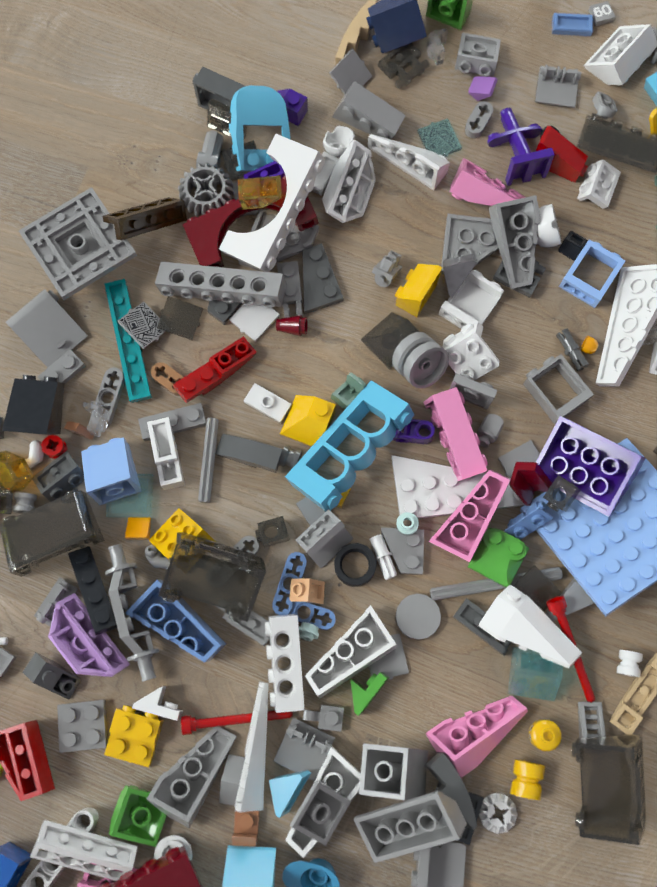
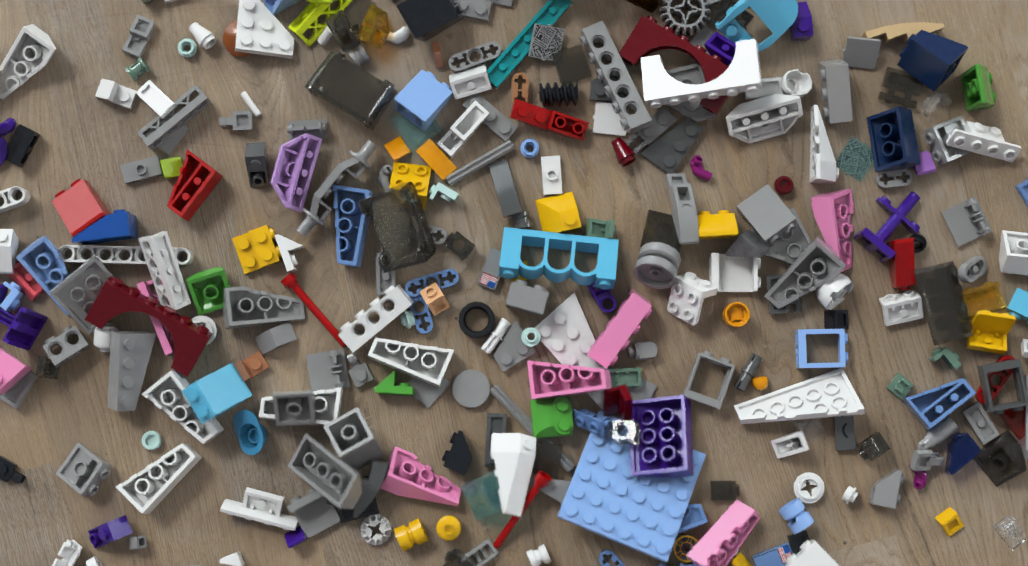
camera: 55 degrees right, 10 degrees up
(58, 448) = (412, 49): red wheel -> none
(59, 477) = (393, 66): dark grey bracket -> none
(82, 726) = (240, 209): light grey plate -> none
(92, 590) = (332, 149): black plate -> none
(98, 421) = (450, 66): clear bracket -> none
(127, 416) = (470, 82): none -> white panel
(175, 498) = (436, 159): none -> light orange slope
(197, 344) = (558, 94): none -> black piece
(214, 510) = (446, 193): none -> light aqua bracket
(225, 400) = (534, 144): none -> light blue plate
(251, 785) = (284, 349): white wedge -> none
(259, 191) = (702, 58): clear yellow slope -> none
(286, 790) = (293, 377): medium azure slope -> none
(324, 538) = (478, 285): light grey bracket -> none
(354, 272) = (697, 168): none -> magenta arm
(368, 500) = (526, 297): none -> light grey brick
(384, 301) = (684, 208): none -> light grey slope
(387, 269) = (716, 192): light grey hips -> none
(421, 211) = (783, 185): none -> dark red plate
(439, 236) = (767, 215): none -> light grey panel
(445, 96) = (893, 140): none -> dark blue slope
(474, 392) = (663, 326): light grey plate -> none
(478, 674) = (459, 455): none -> black slope
(498, 27) = (984, 141): none -> white bracket
(506, 459) = (627, 376): none -> sand green plate
(512, 324) = (735, 314): none -> light orange wheel
(637, 112) = (983, 298): none -> clear yellow bracket

